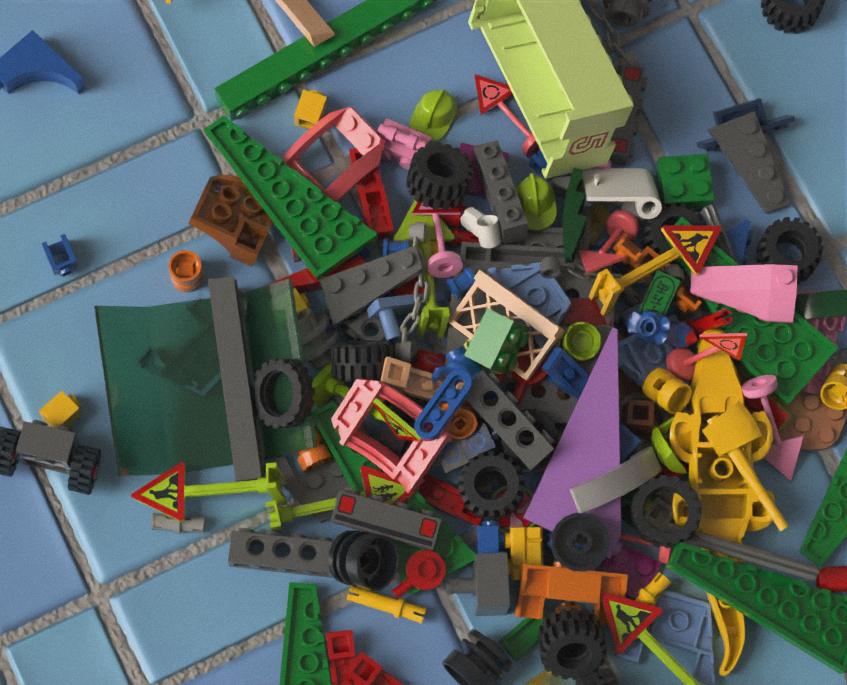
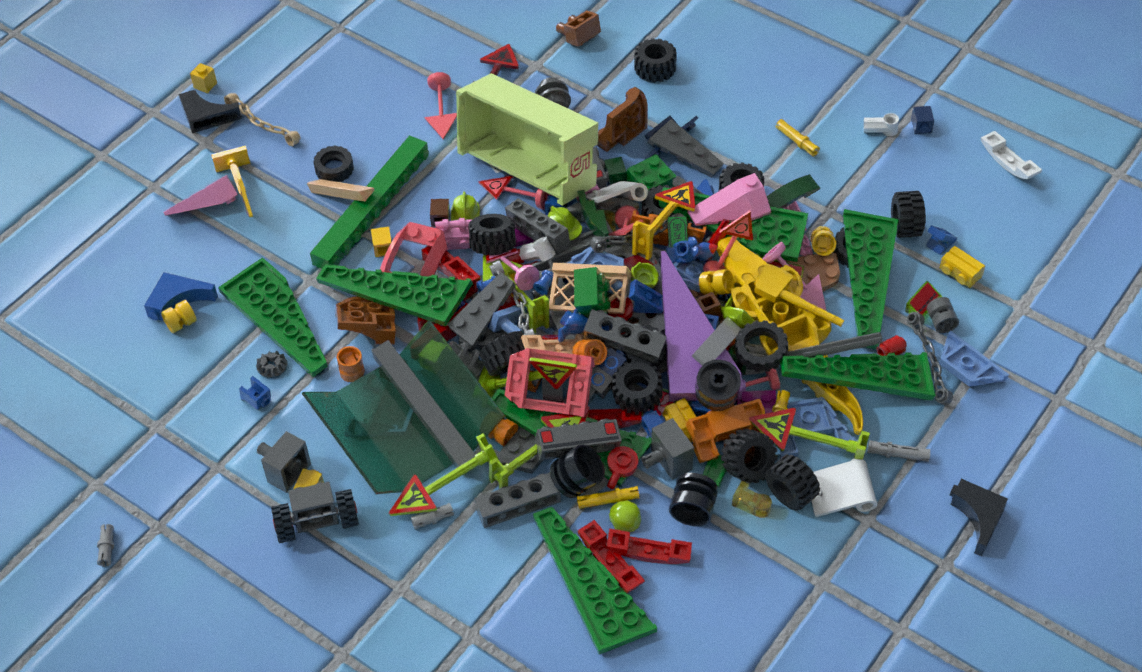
camera: 20 degrees left, 20 degrees down
(23, 101) = (179, 316): none -> yellow wheel
(45, 368) = (284, 460): none -> dark grey brick
(109, 224) = (271, 370): none -> dark grey gear
(137, 133) = (271, 305): none -> green wing
(302, 393) = (479, 394): black tyre -> none
(393, 638) = (625, 516): none -> lime hair
(401, 101) = (439, 210): none -> reddish brown brick
(446, 394) = (576, 334): blue plate -> none
(647, 148) = (615, 169): none -> dark green brick
(697, 86) = (625, 121): none -> dark orange slope

